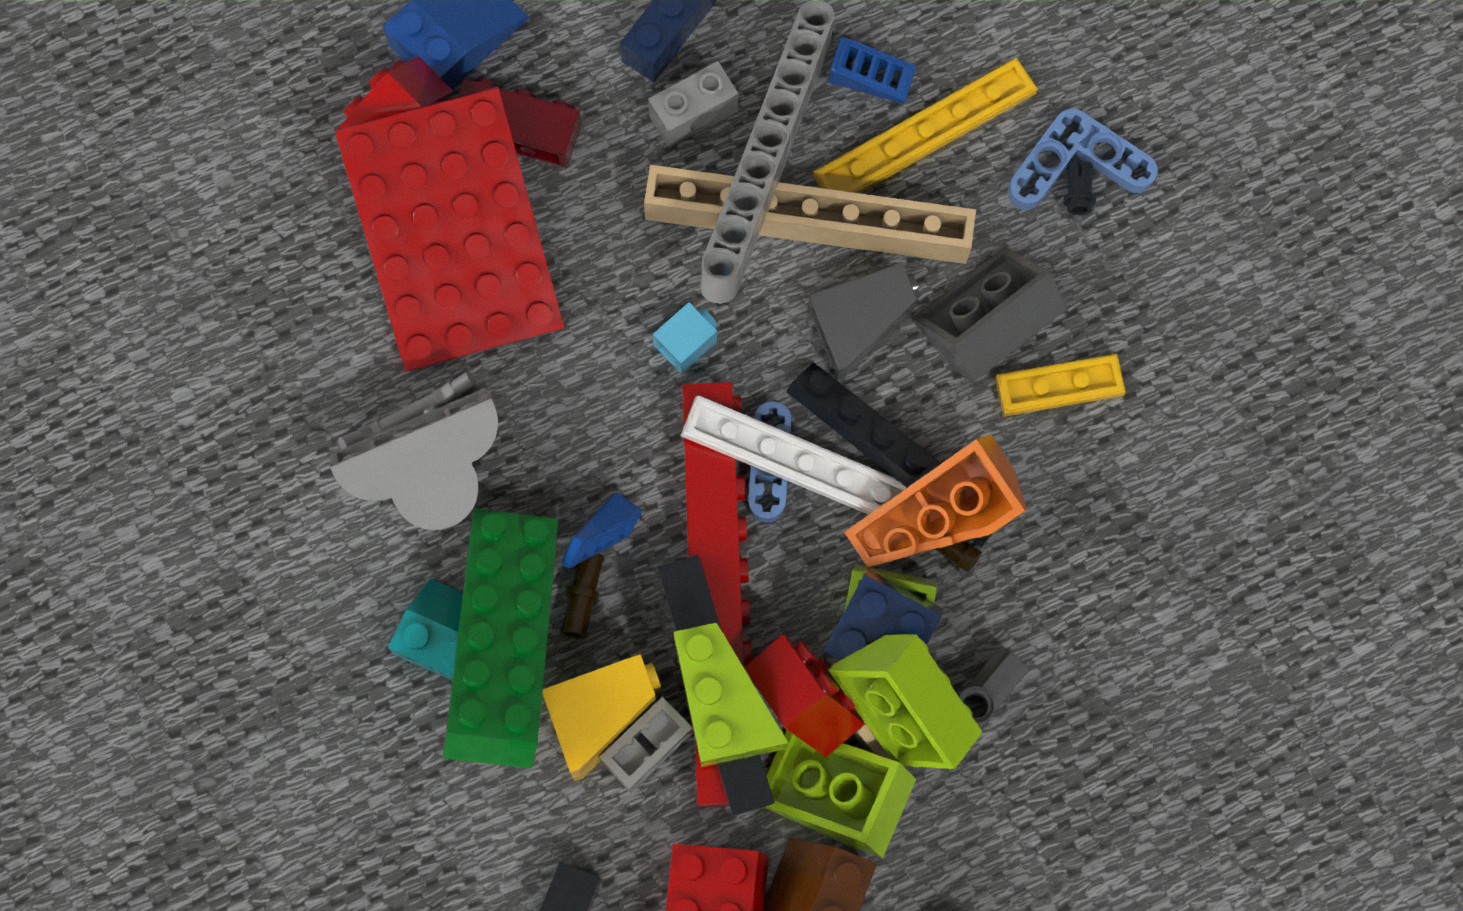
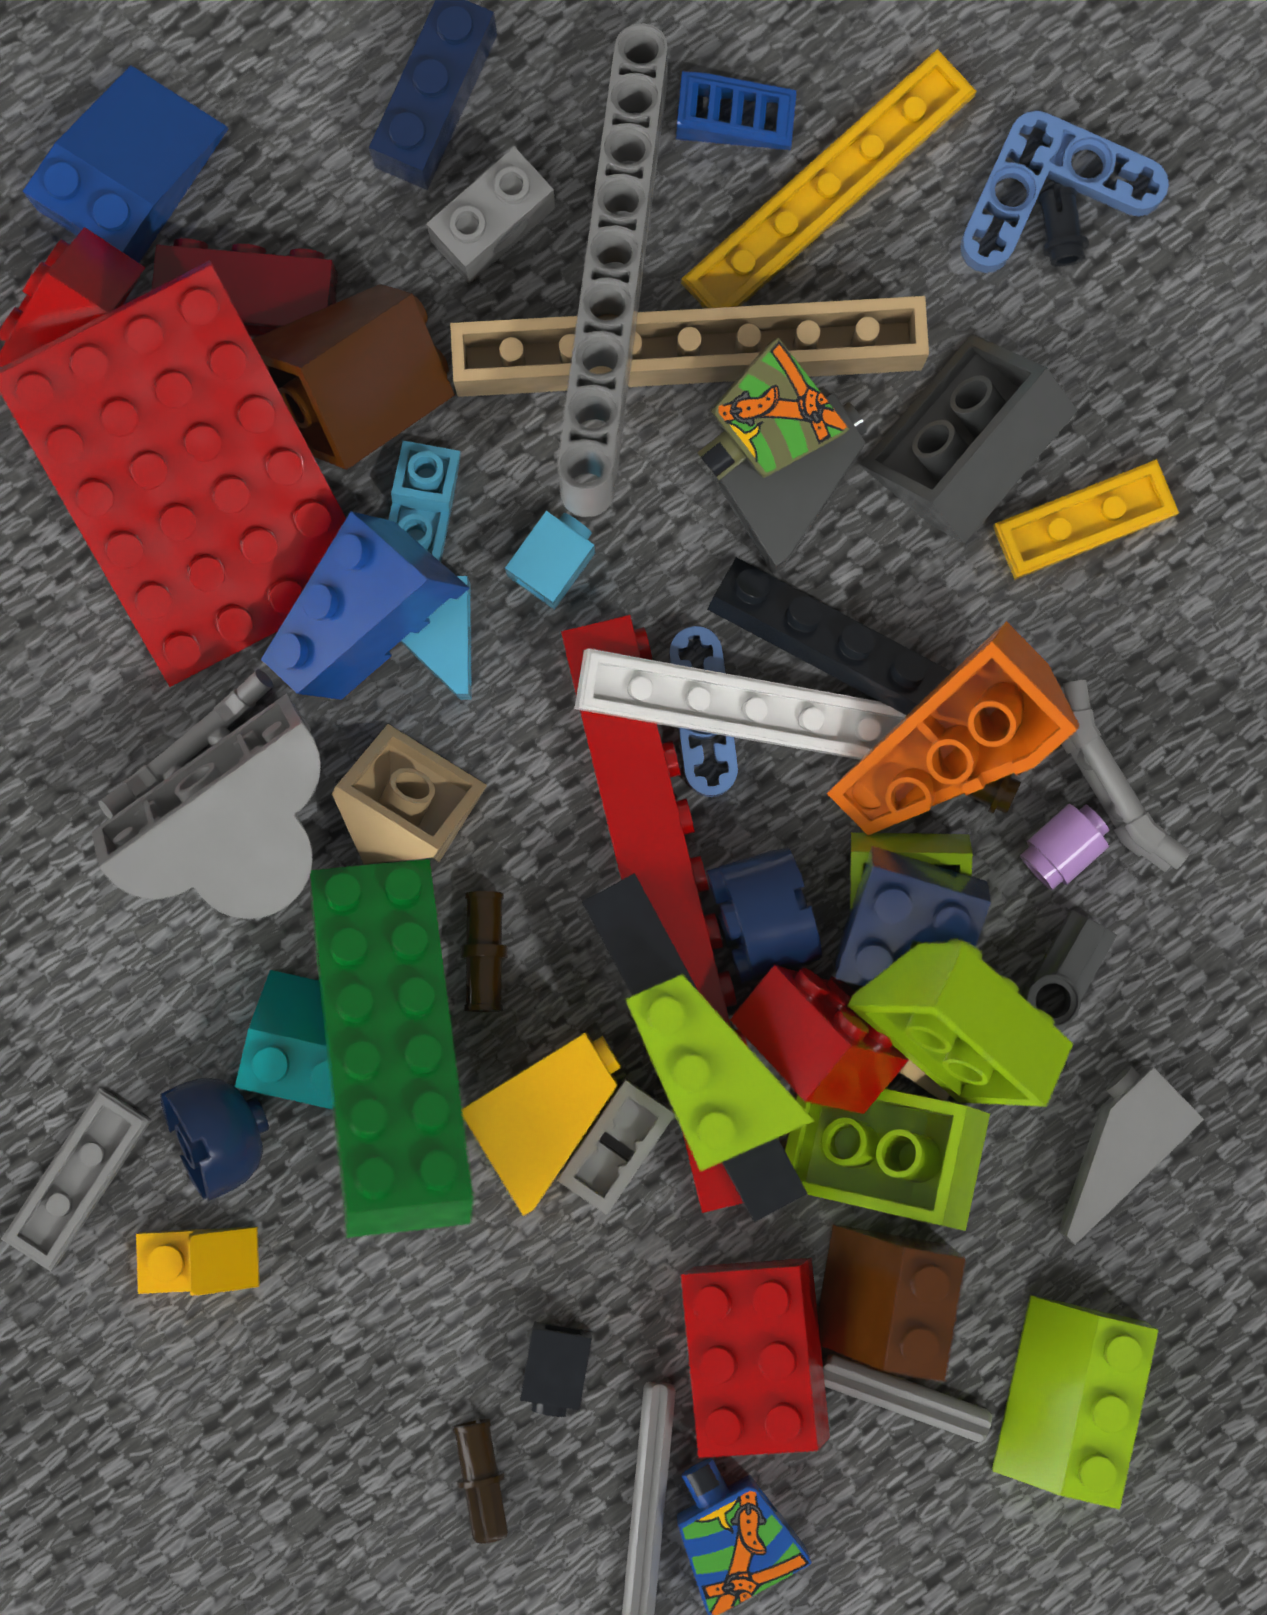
camera: 10 degrees left, 10 degrees up
(261, 696) = (76, 1179): none -> light grey tile
(333, 769) = (197, 1260): none -> yellow slope
(366, 680) = (215, 1133): none -> dark blue cylinder
(546, 338) = (358, 606): none -> blue wedge
(549, 478) = (404, 800): none -> tan slope
(581, 185) = (357, 372): none -> reddish brown slope
(597, 366) = (446, 644): none -> medium azure slope
(603, 287) = (425, 493): none -> medium azure slope
(604, 529) = (499, 853): blue slope -> none
(783, 602) = (765, 914): none -> dark blue brick
(854, 266) = (770, 416): none -> torso
(1005, 602) = (1065, 845): none -> lavender brick
(1013, 815) = (1128, 1141): none -> light grey slope
(1055, 595) = (1131, 821): none -> light grey piece

